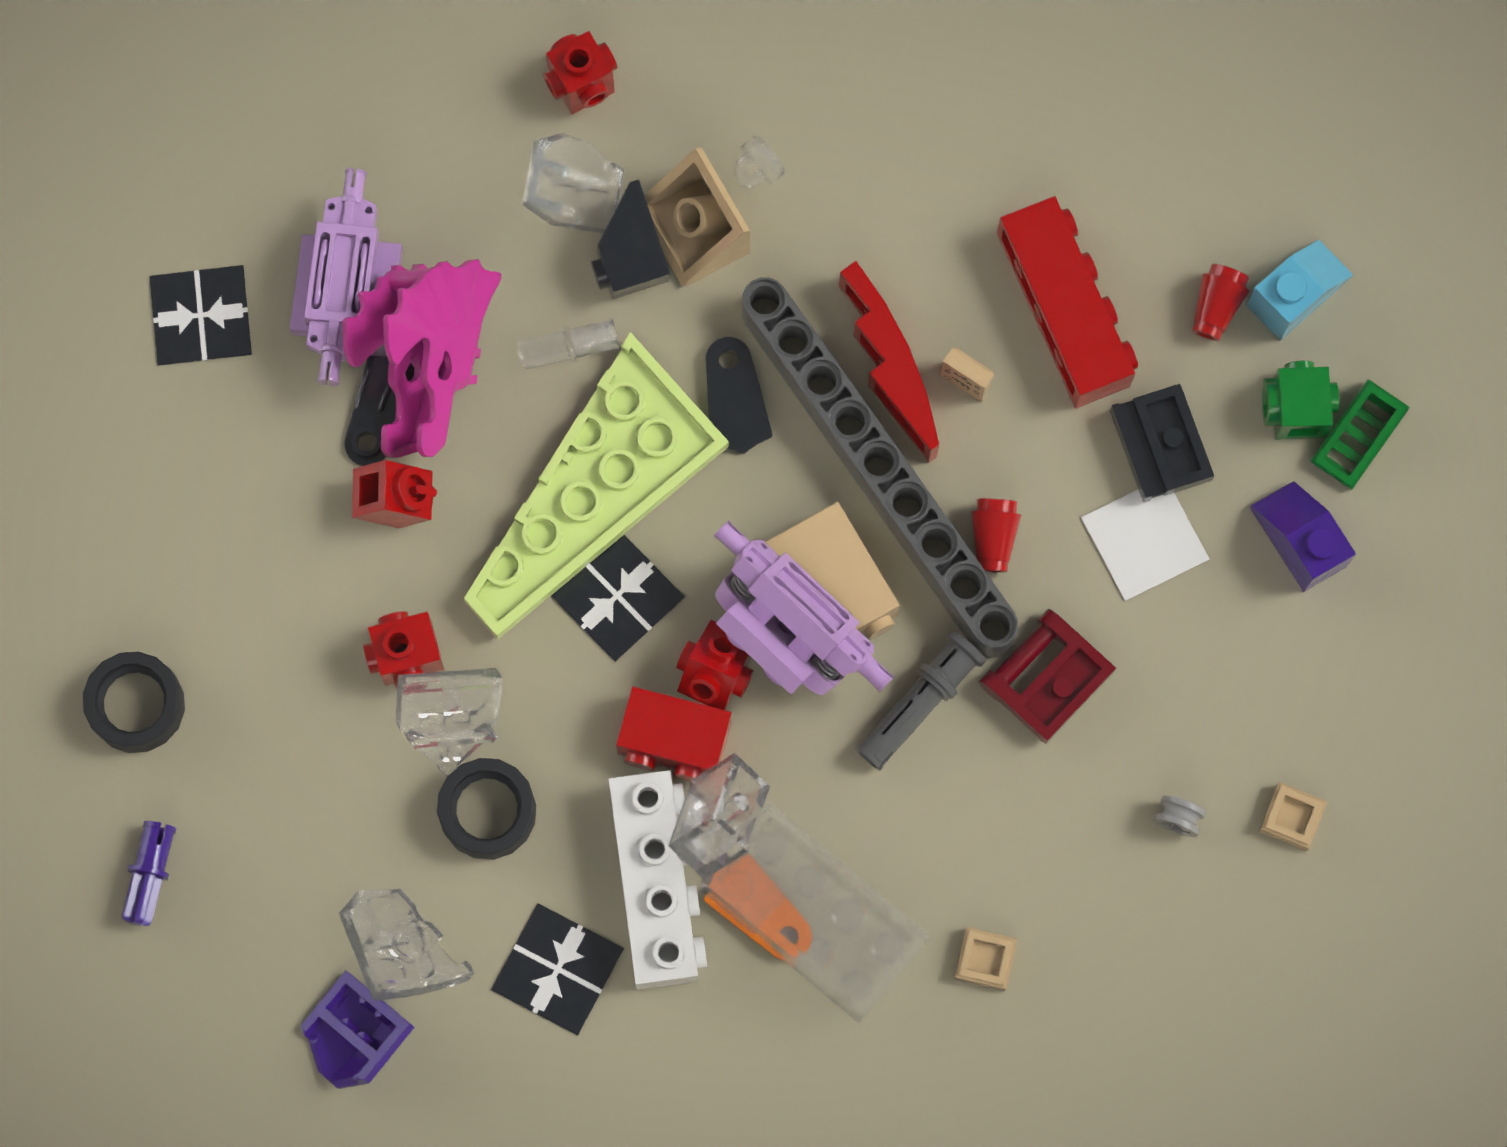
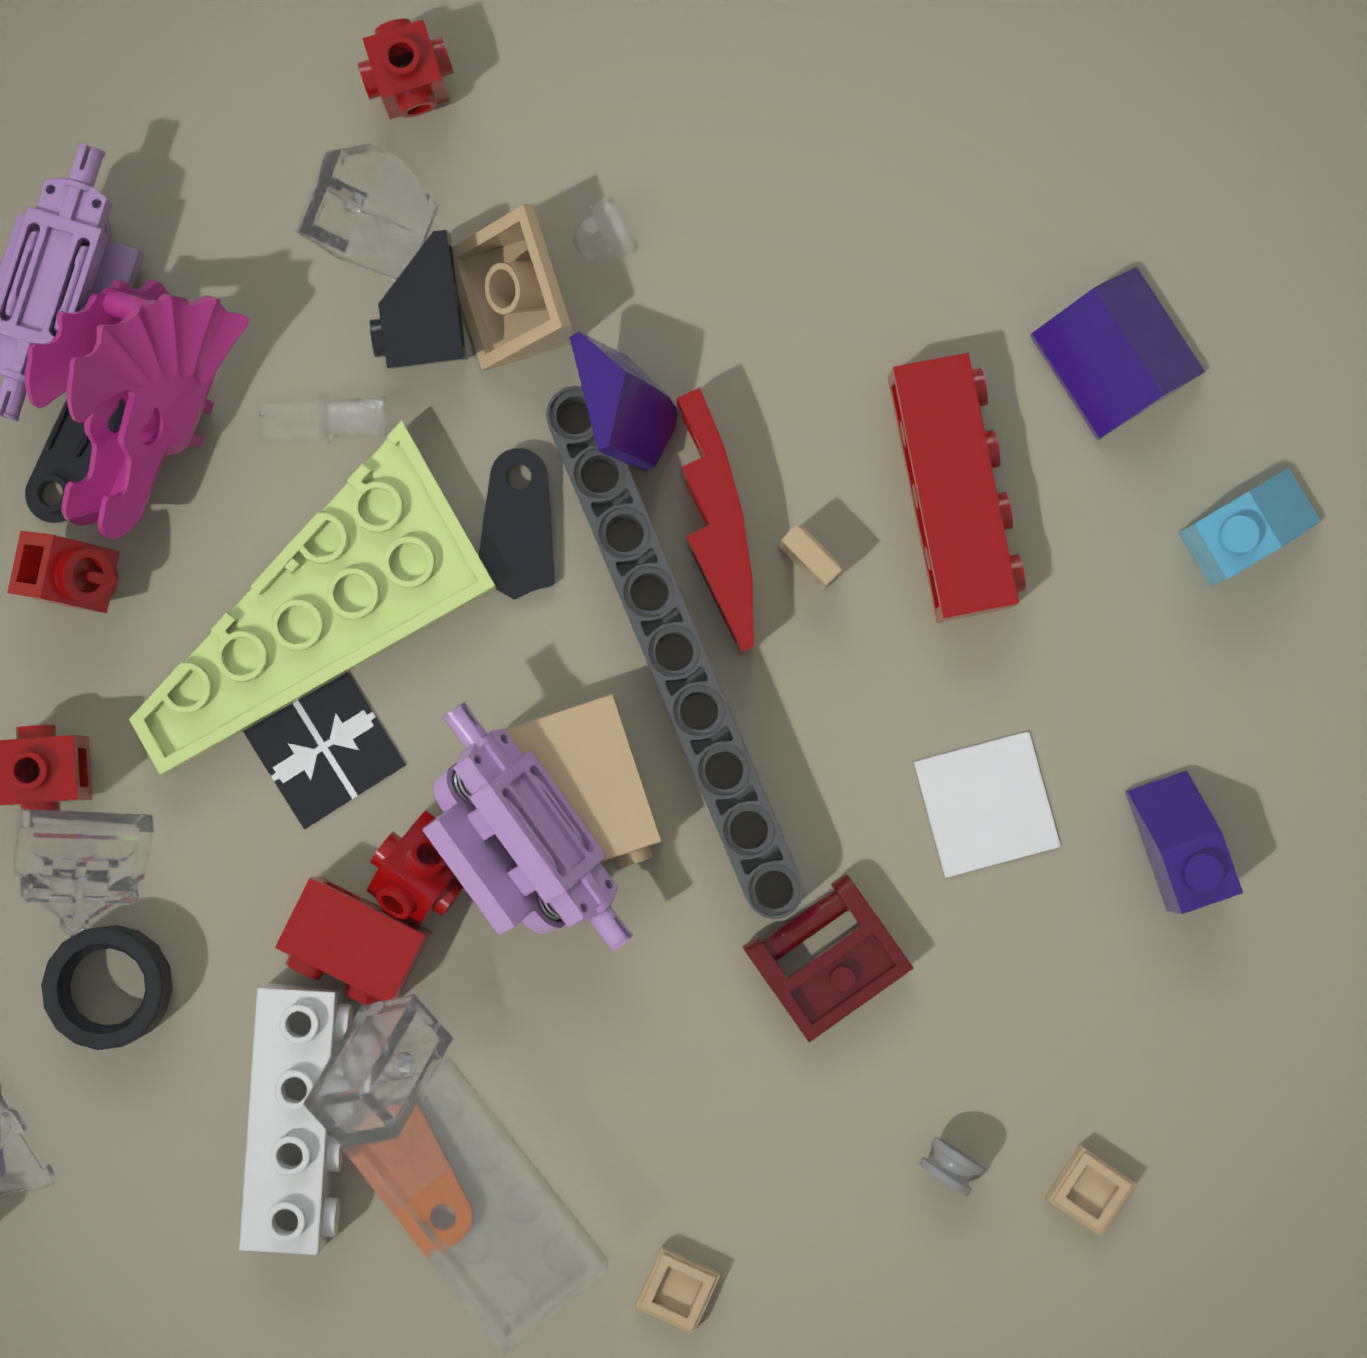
camera: 10 degrees right, 10 degrees up
(557, 969) = (159, 1194): black sticker -> none
(803, 285) = (625, 406): none -> dark purple slope
(935, 683) = (688, 940): dark grey pin -> none
(995, 532) = (801, 765): red cone -> none
(1162, 443) = (1033, 692): black plate -> none
(1167, 179) = (1116, 352): none -> dark purple slope
(1219, 300) = (1145, 524): red cone -> none
(1300, 401) = (1217, 673): green brick -> none
(1383, 400) = (1266, 711): green slope -> none

